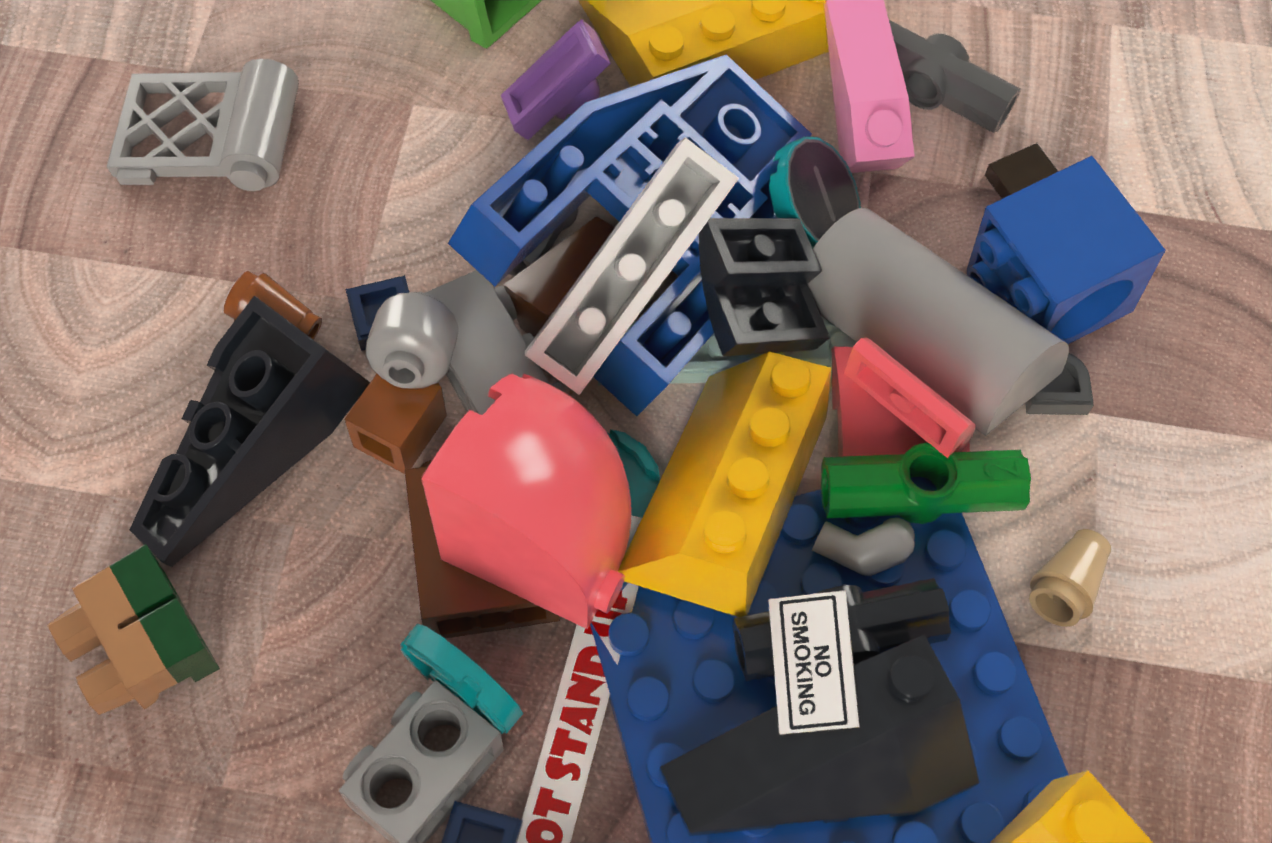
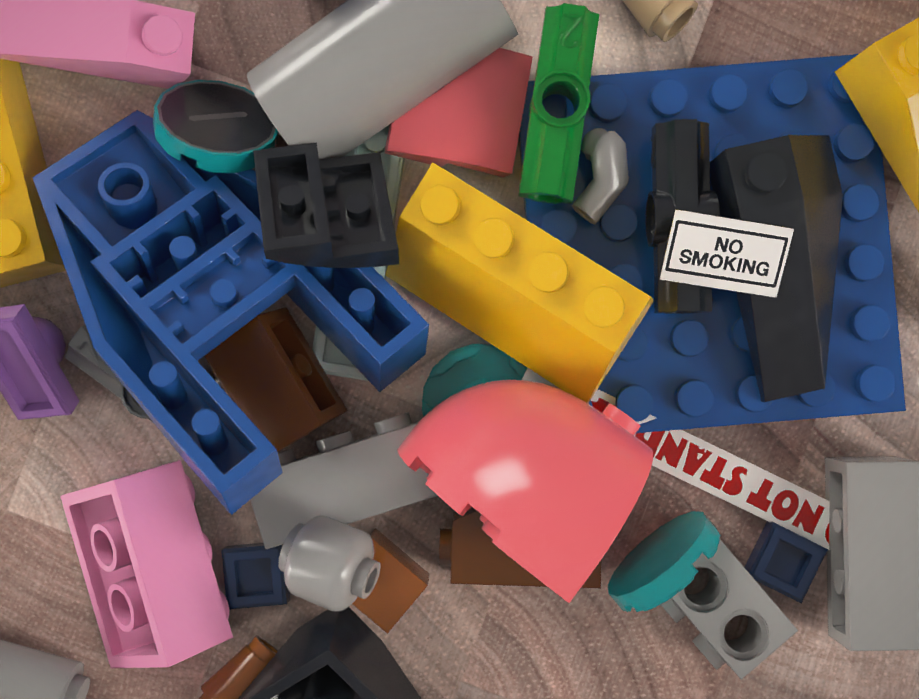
camera: 80 degrees left, 25 degrees up
(379, 215) = (148, 568): none -> bright pink slope
(631, 265) = (302, 335): white brick -> none
(908, 398) = (491, 94): coral slope -> none

